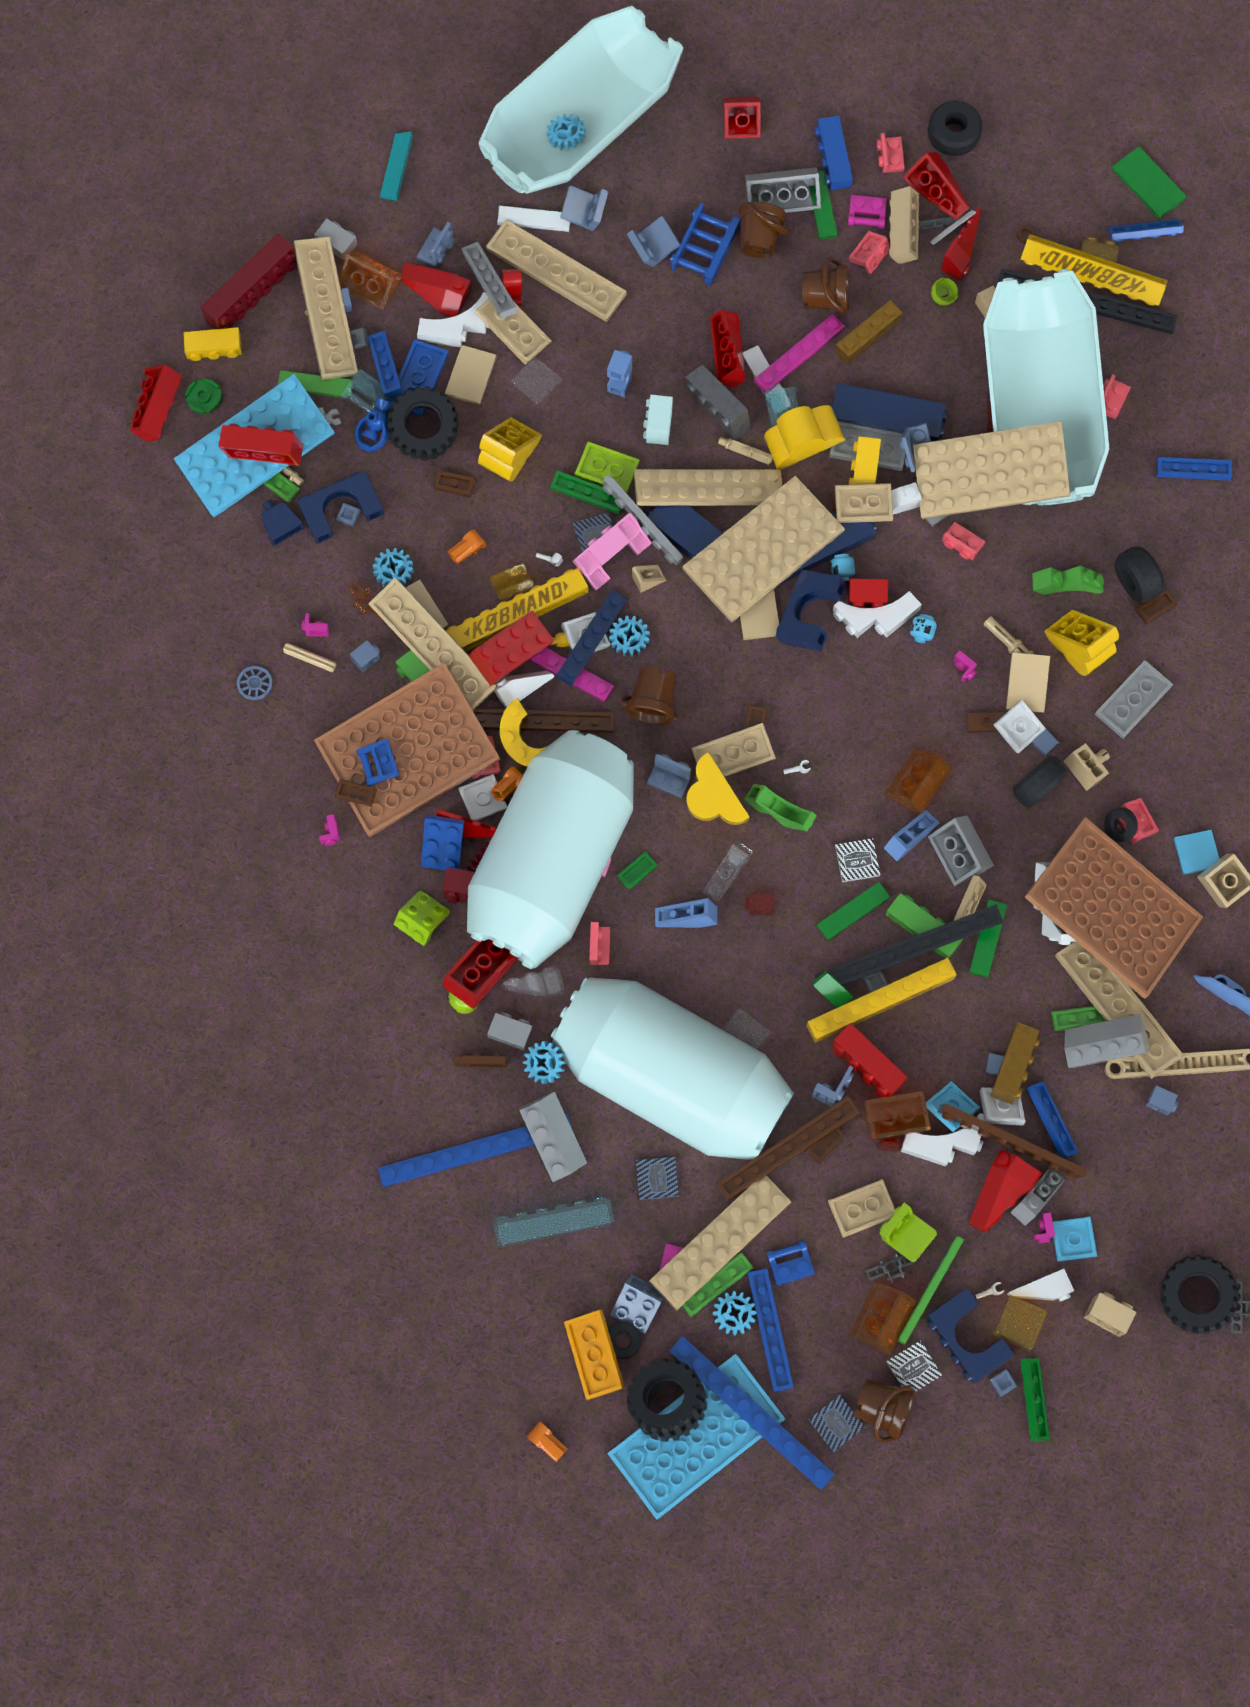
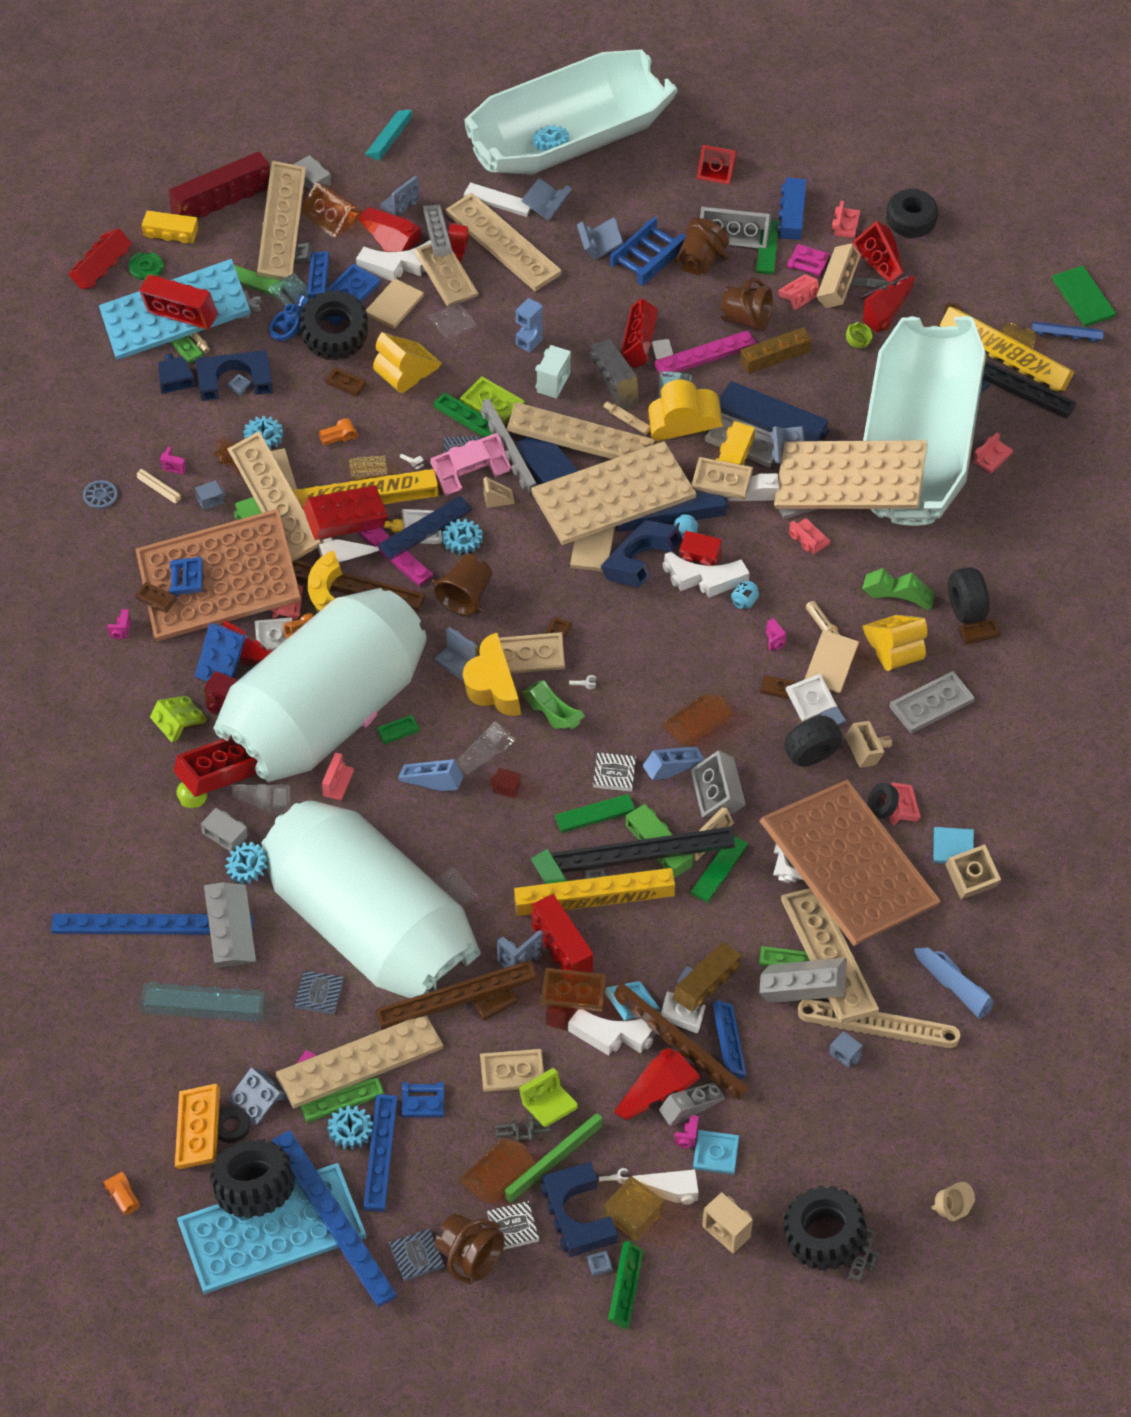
camera: 15 degrees right, 20 degrees down
(346, 299) = (303, 221): sand blue tile -> none
(479, 1060) = (186, 847): reddish brown hinge -> none
(1194, 468) = (1053, 528): blue plate -> none

